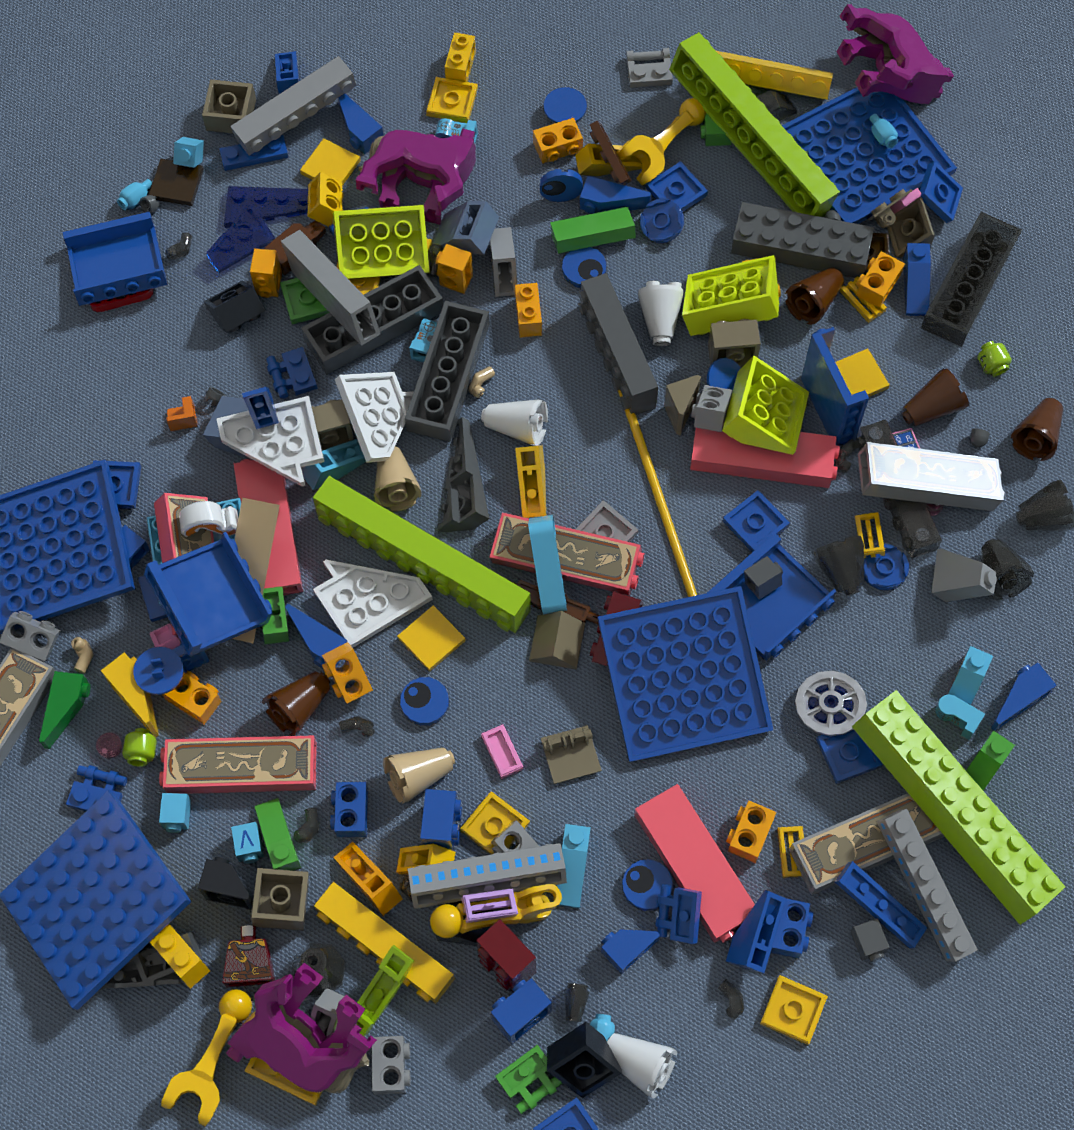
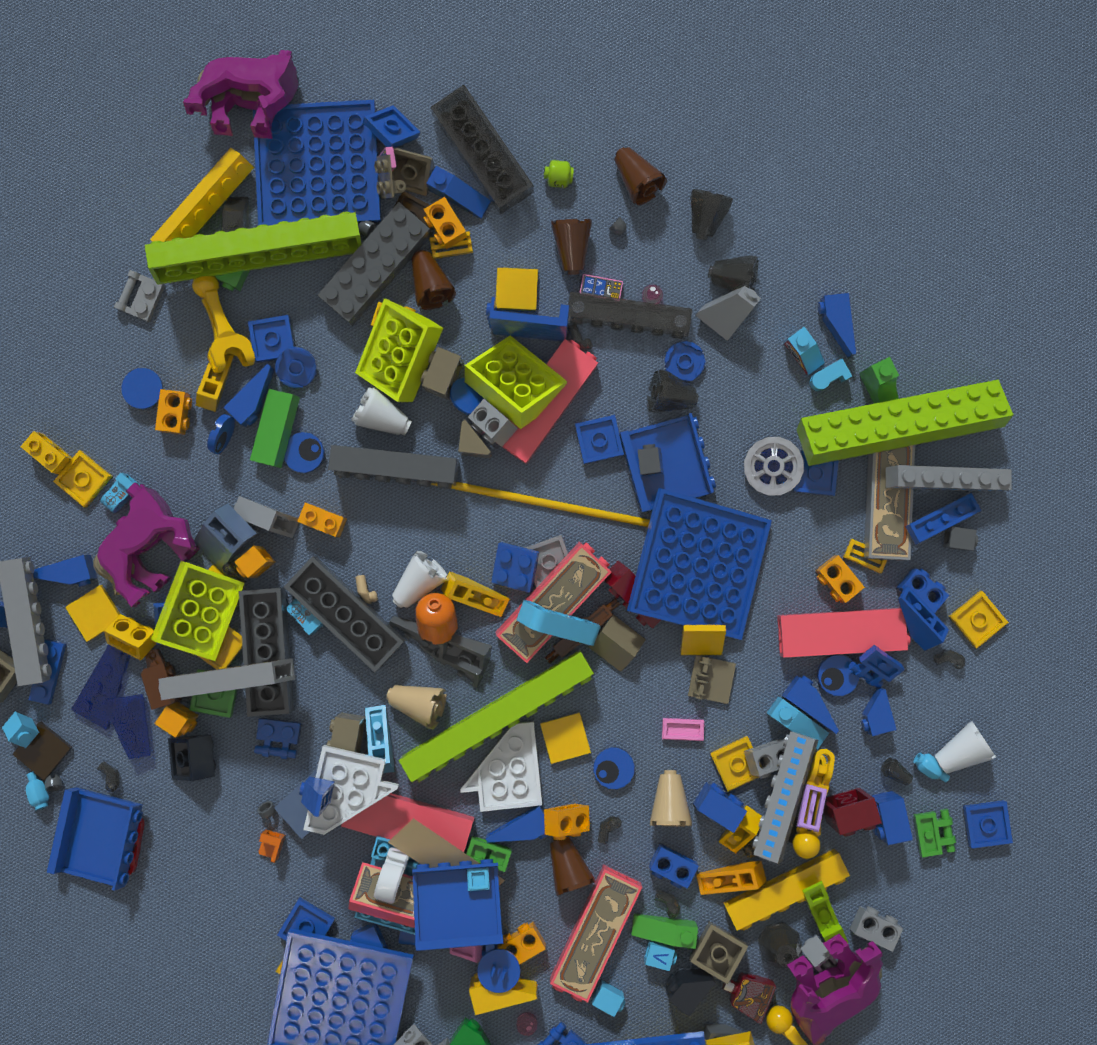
camera: 60 degrees left, 20 degrees up
(84, 653) = (441, 1010): tan arm -> none
(139, 747) = (545, 1004): lime head -> none
(245, 603) = (478, 879): none -> medium azure tile
(375, 410) = (357, 693): white wing -> none
(489, 449) = (436, 618): none -> orange cylinder
(581, 502) = (515, 567): none -> blue plate
(582, 1060) = (944, 791): black slope -> none
(603, 863) = (808, 699): none -> blue slope
(607, 718) = (703, 639): none -> yellow tile
(609, 153) = (215, 380): reddish brown plate -> none
(871, 551) = (639, 352): yellow tile -> none
(884, 131) = (310, 139): medium azure plant -> none
(930, 476) = (638, 287): brick -> none

